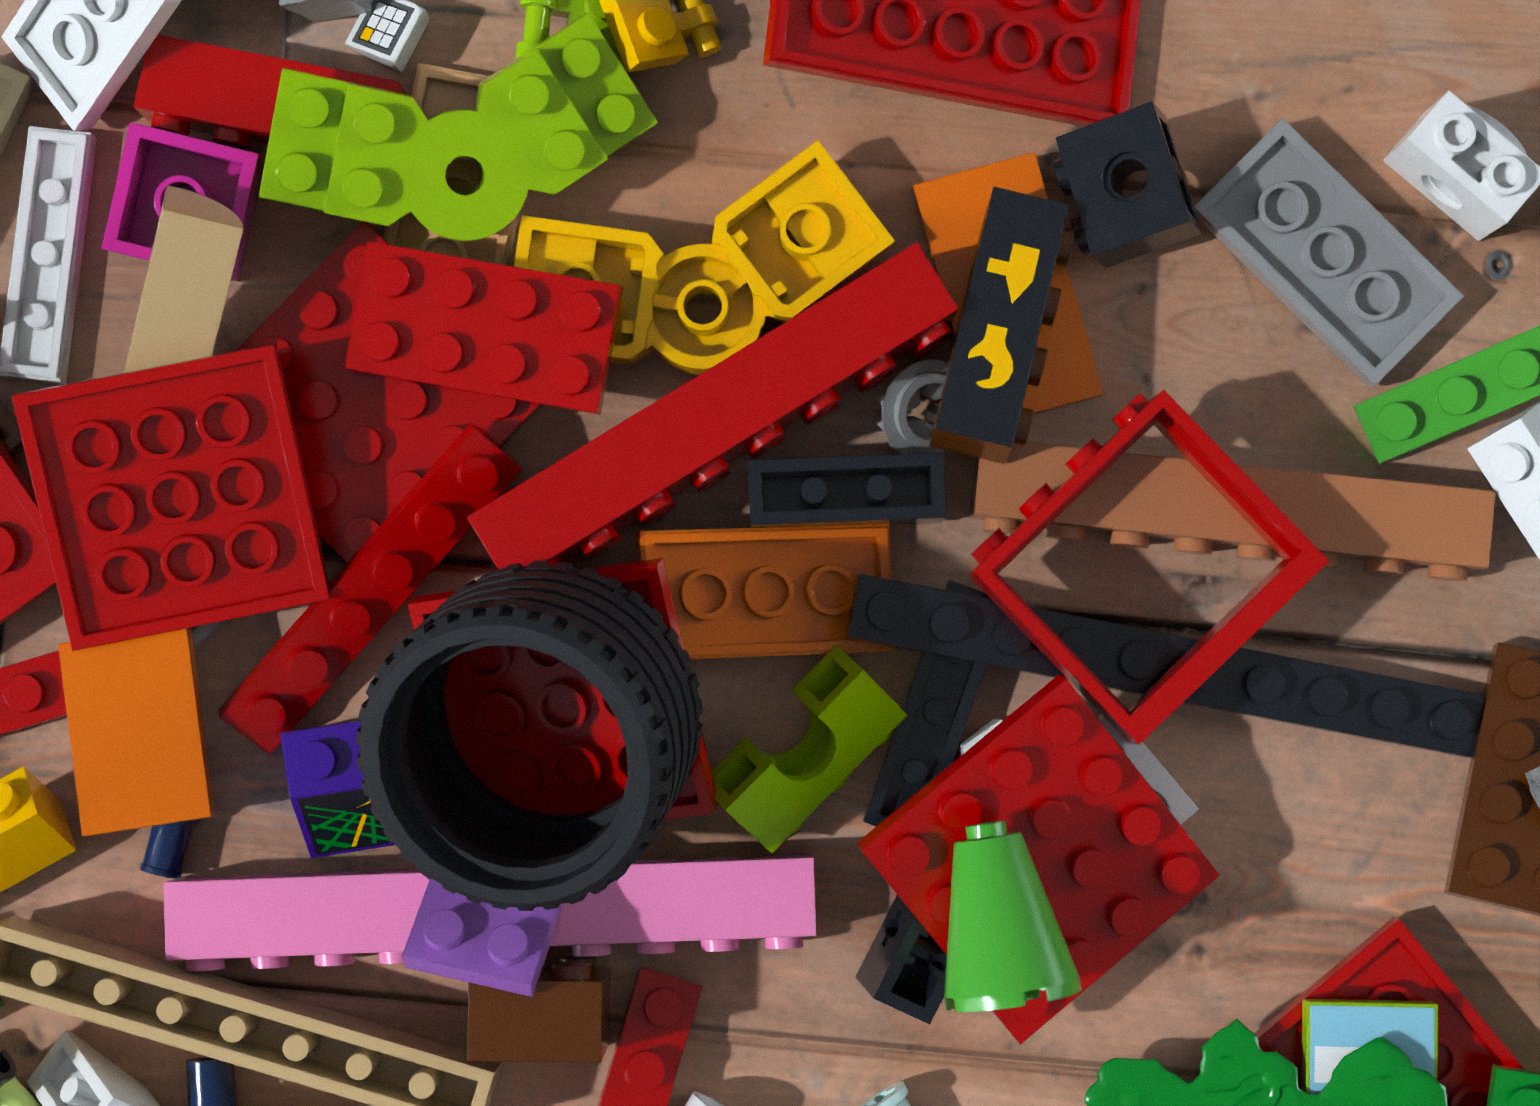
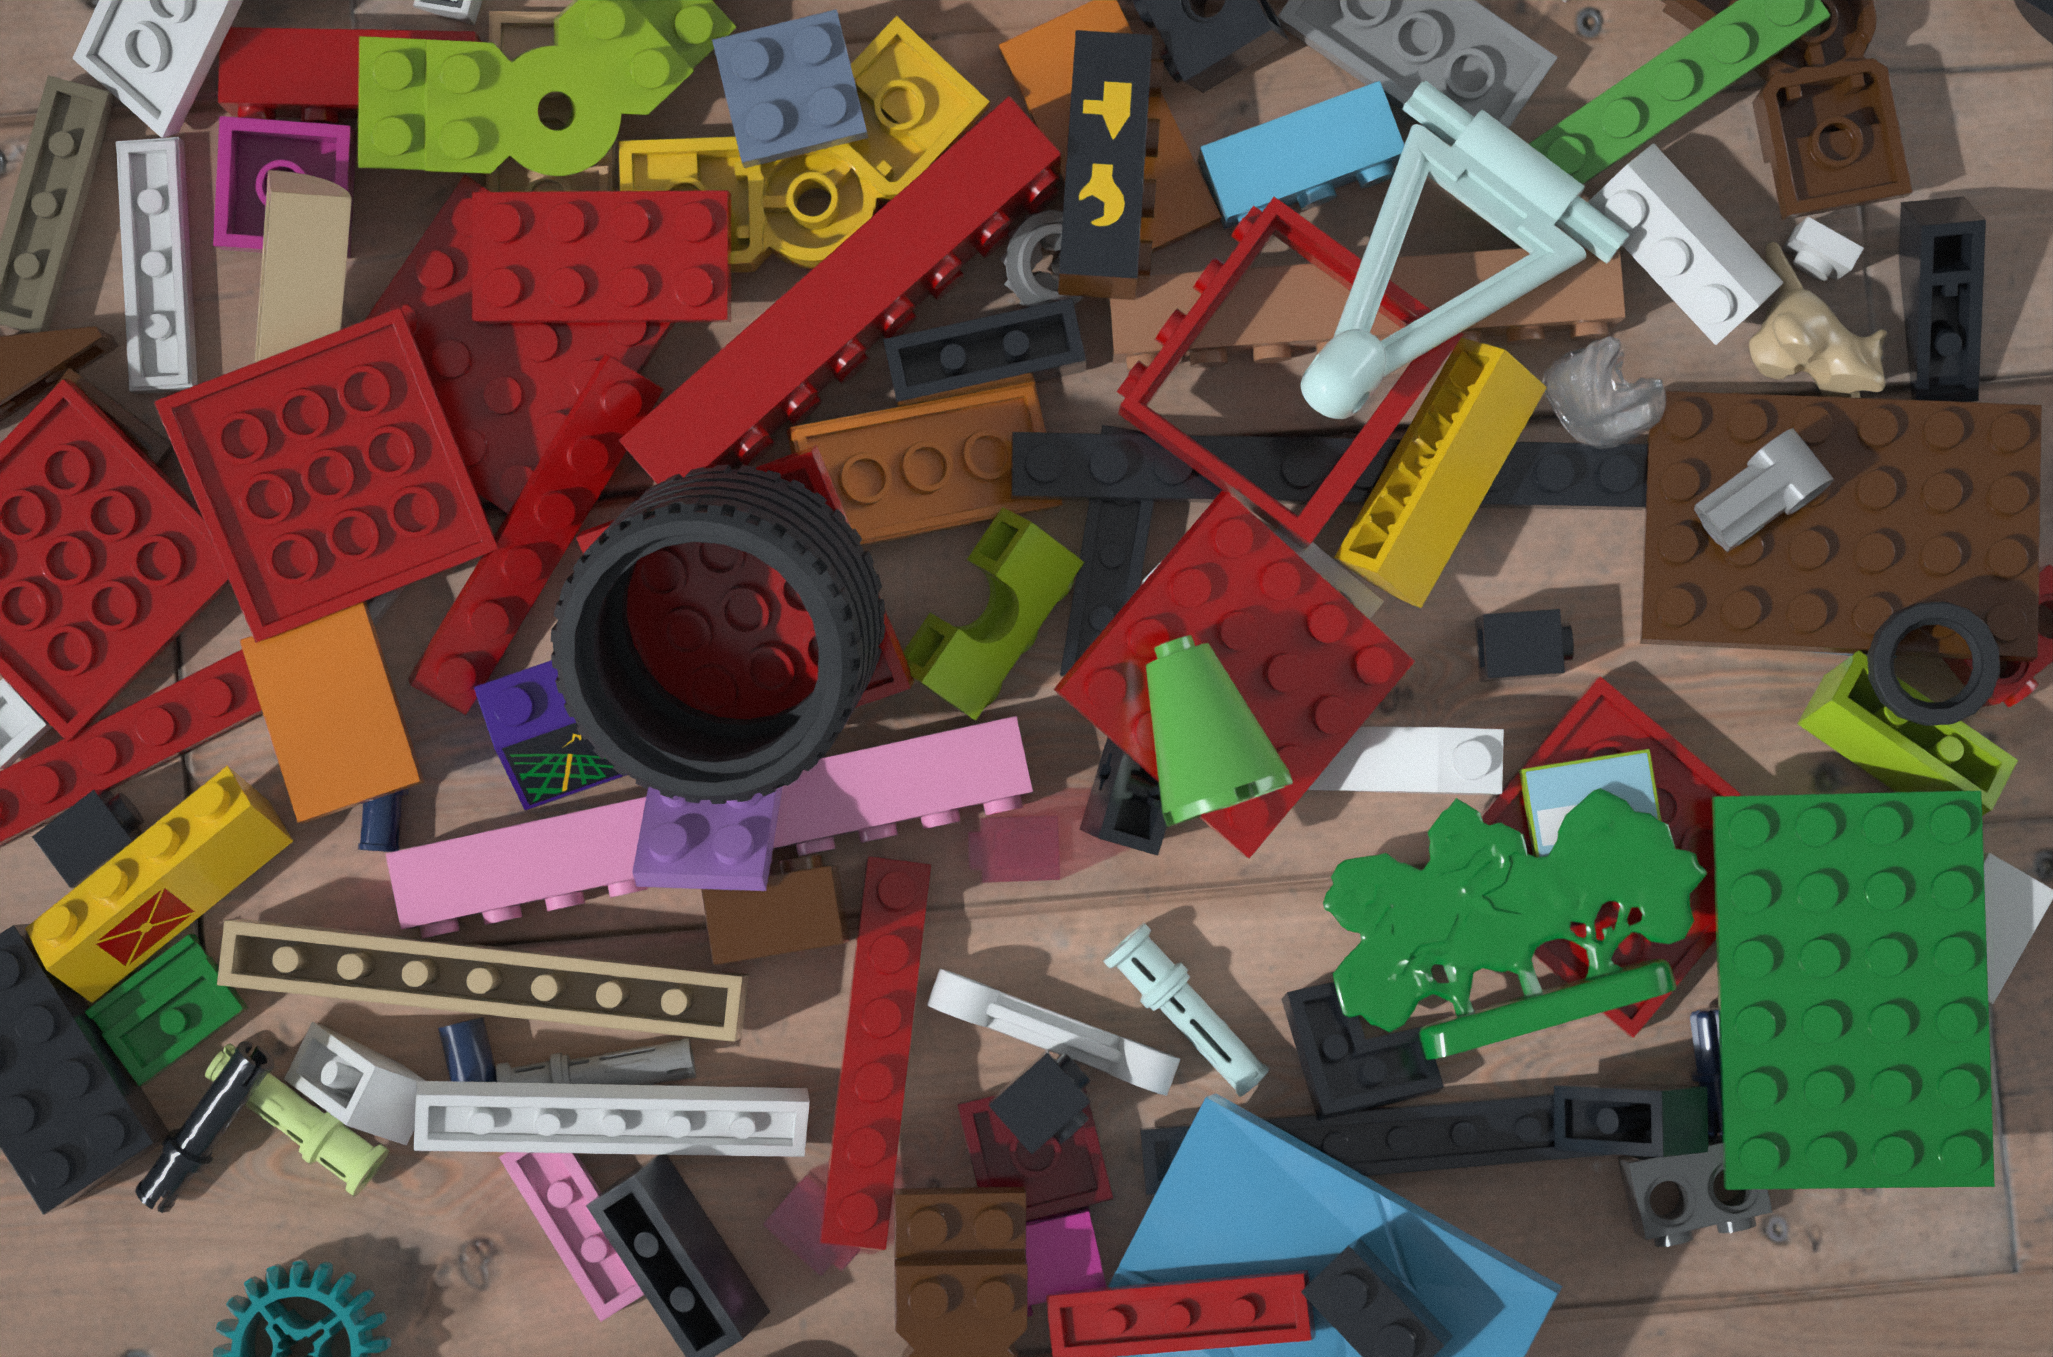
camera: 10 degrees left, 0 degrees up
(699, 194) = (790, 88): none -> sand blue plate
(790, 987) = (1016, 849): none -> clear pink brick
(1196, 349) = (1304, 155): none -> medium azure brick
(1209, 973) = (1418, 761): none -> white slope
(1279, 691) = (1441, 471): none -> yellow brick
(1327, 874) = (1522, 645): none -> black brick
(1390, 414) = (1499, 181): none -> light aqua piece
(1443, 645) = (1596, 400): none -> clear hair

